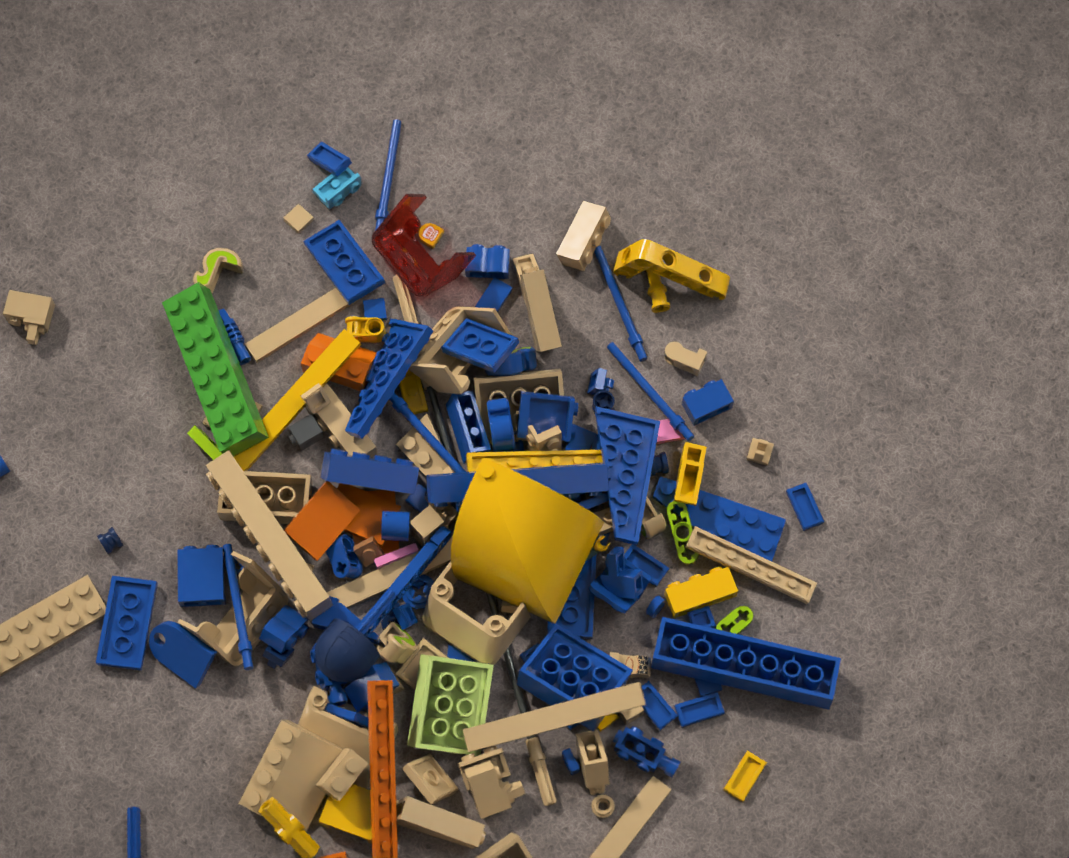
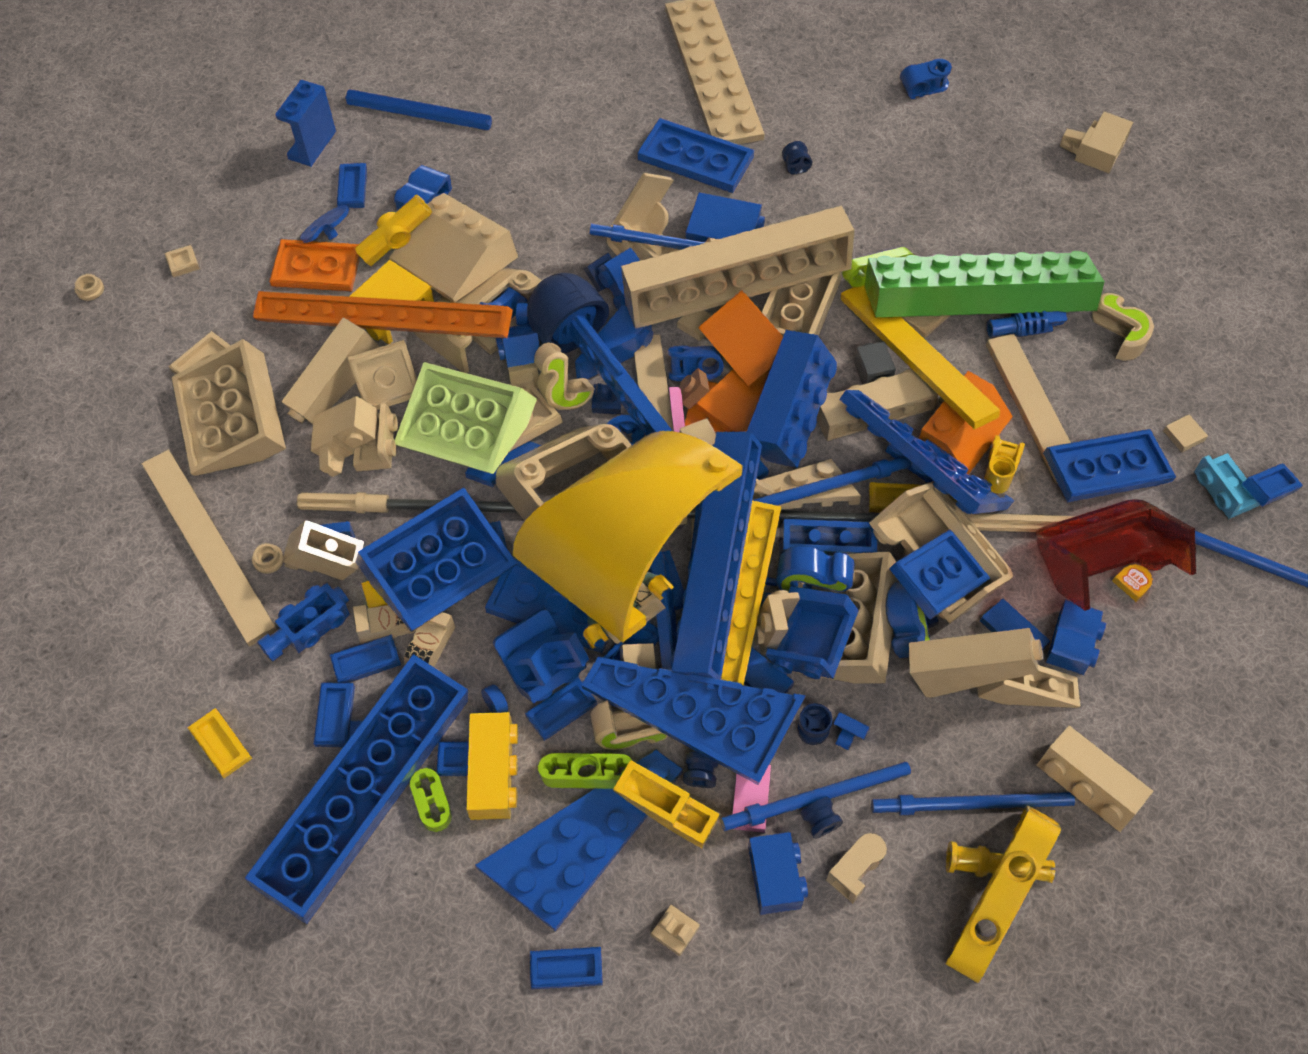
camera: 110 degrees right, 10 degrees down
(181, 652) = (618, 196): blue tile -> none
(233, 830) = (425, 183): none -> blue brick
(315, 398) = (911, 369): tan tile -> none
(342, 774) = (423, 277): tan brick -> none
(375, 308) = (1030, 486): blue tile -> none
(395, 526) = (715, 405): blue piece -> none
(405, 616) = (597, 407): blue tile -> none
(554, 717) = (381, 512): tan tile -> none
(663, 384) = (821, 817): none -> dark blue wheel
(751, 565) = (499, 849): tan tile -> none

